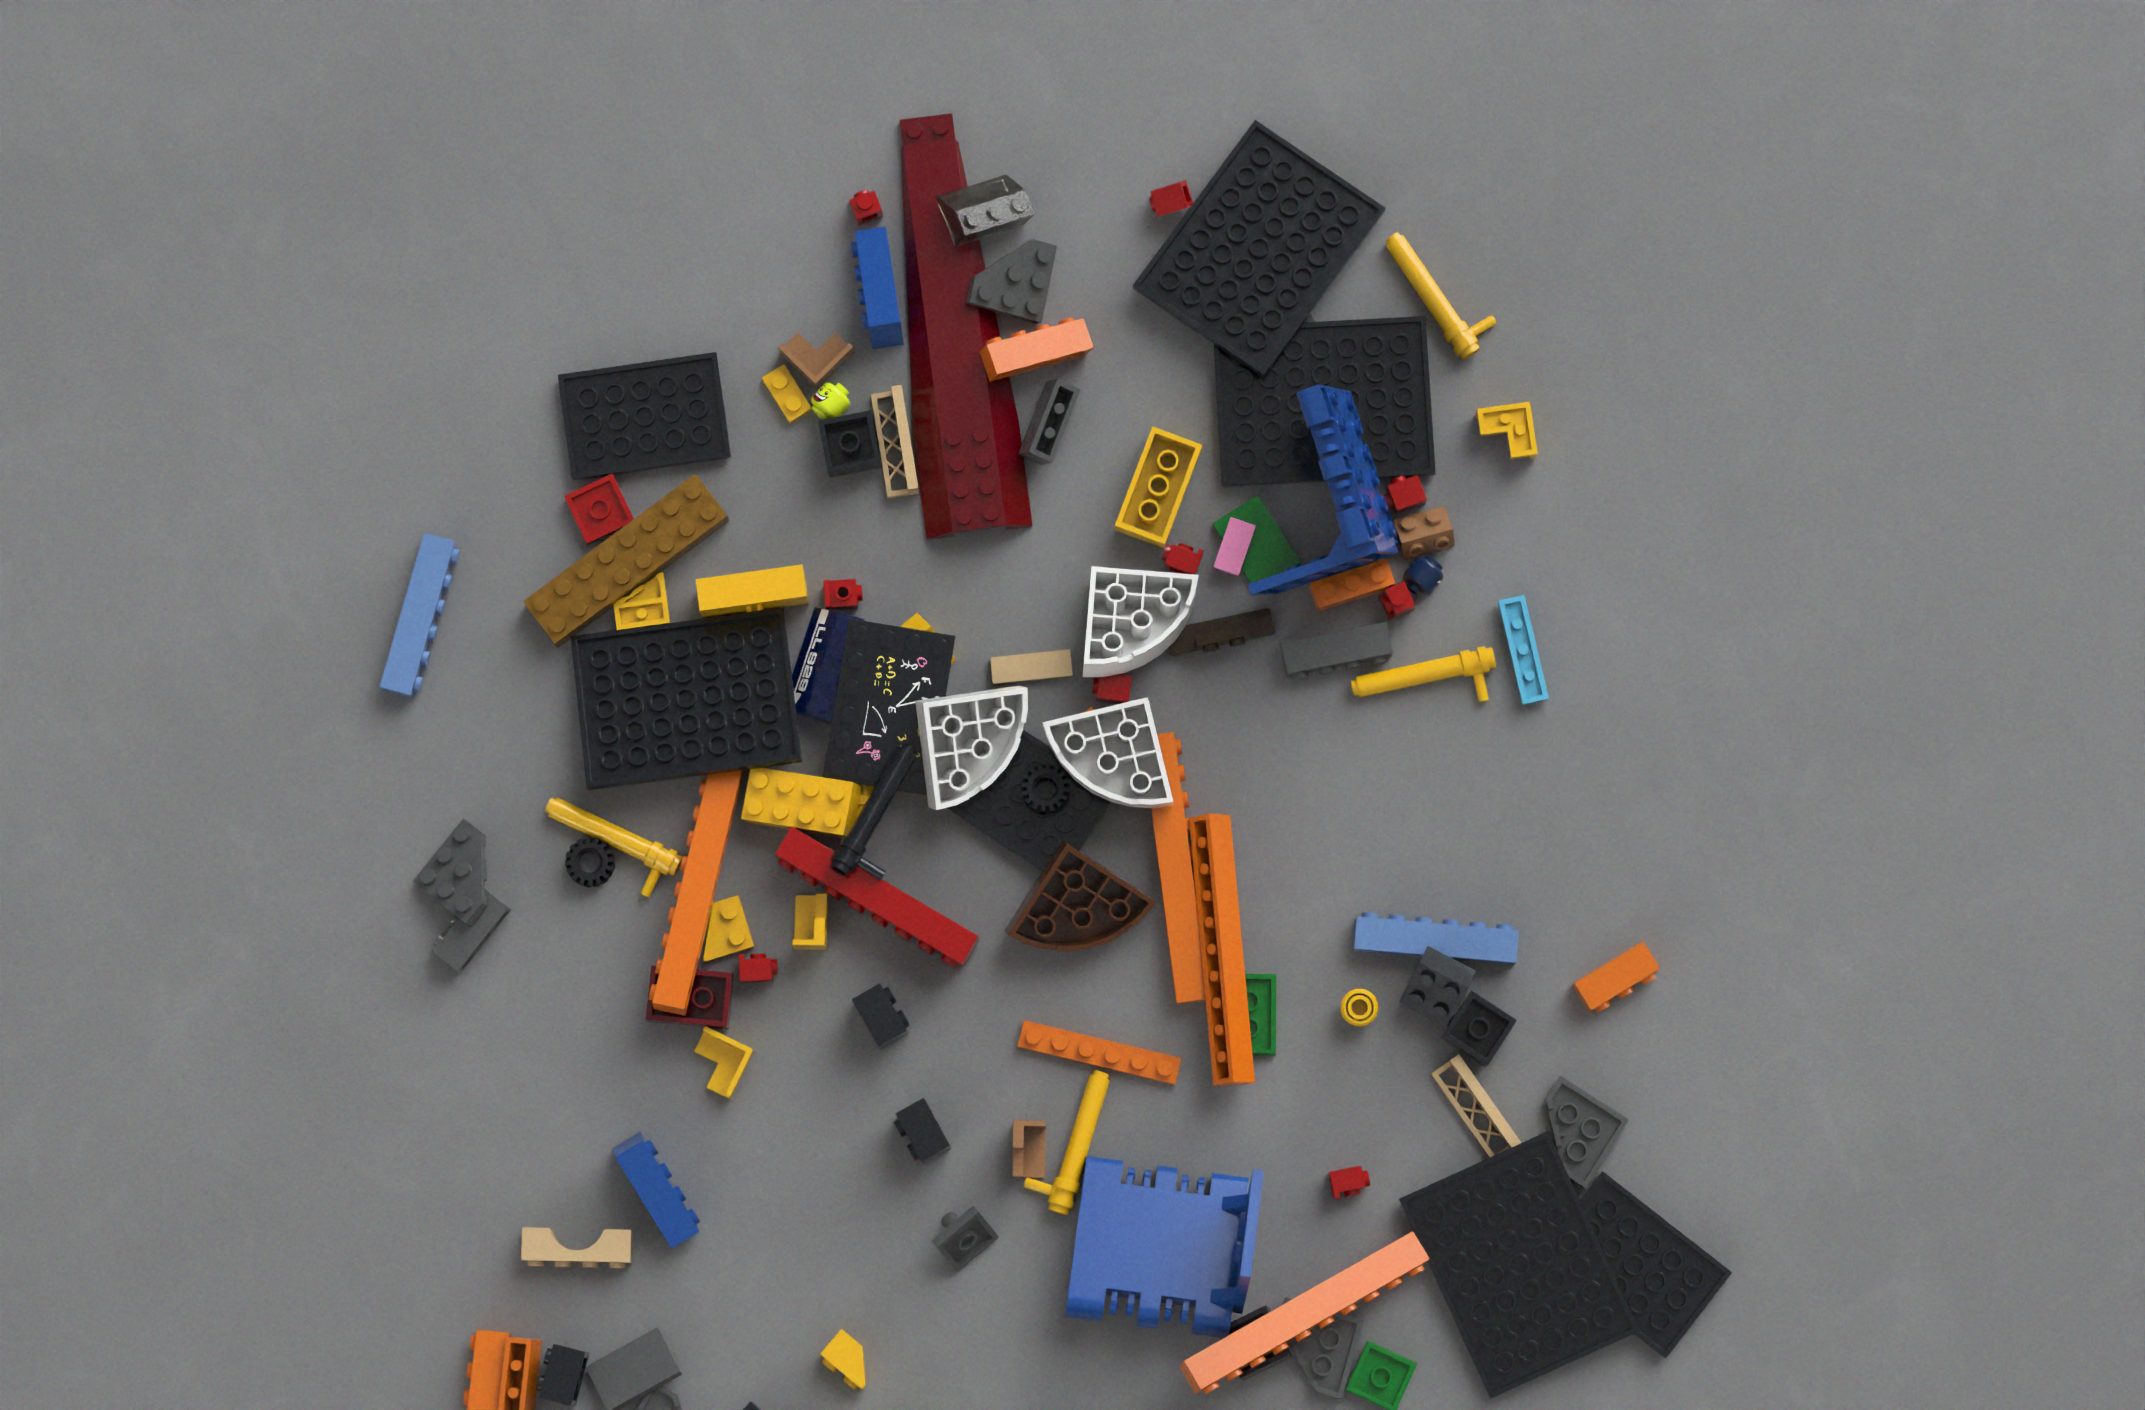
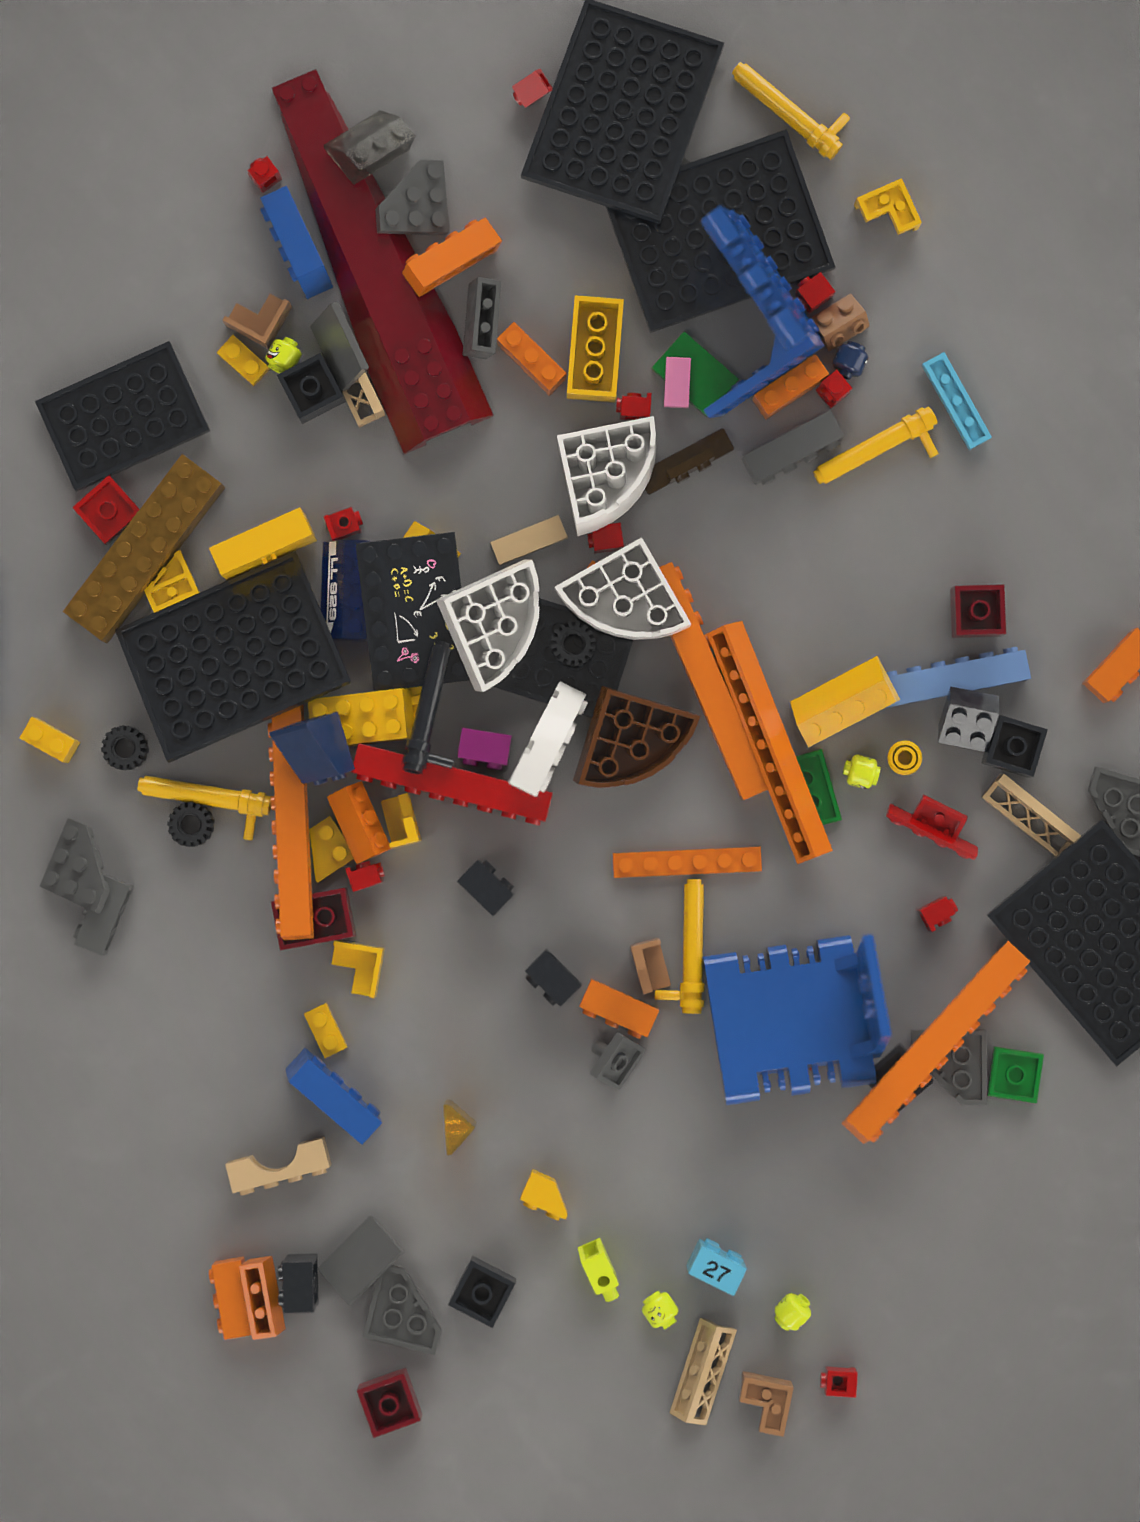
camera: 15 degrees left, 5 degrees up
(469, 731) = (49, 740): none -> yellow brick
(533, 750) = (114, 737): none -> black tyre
(667, 1119) = (325, 1030): none -> yellow plate
(745, 819) = (315, 748): none -> dark blue slope
(767, 910) = (358, 822): none -> orange brick
(776, 1258) = (457, 1126): none -> clear yellow slope
(891, 409) = (339, 346): none -> dark grey tile
(921, 870) = (484, 748): none -> magenta brick
(982, 1185) = (618, 1009): none -> orange brick
(986, 884) = (547, 740): none -> white brick
(1089, 478) = (531, 358): none -> orange brick
(1310, 1010) = (861, 771): none -> neon yellow head
(1311, 930) = (843, 701): none -> yellow slope
(1374, 1086) = (937, 823): none -> red bracket
(1481, 876) = (978, 611): none -> dark red brick

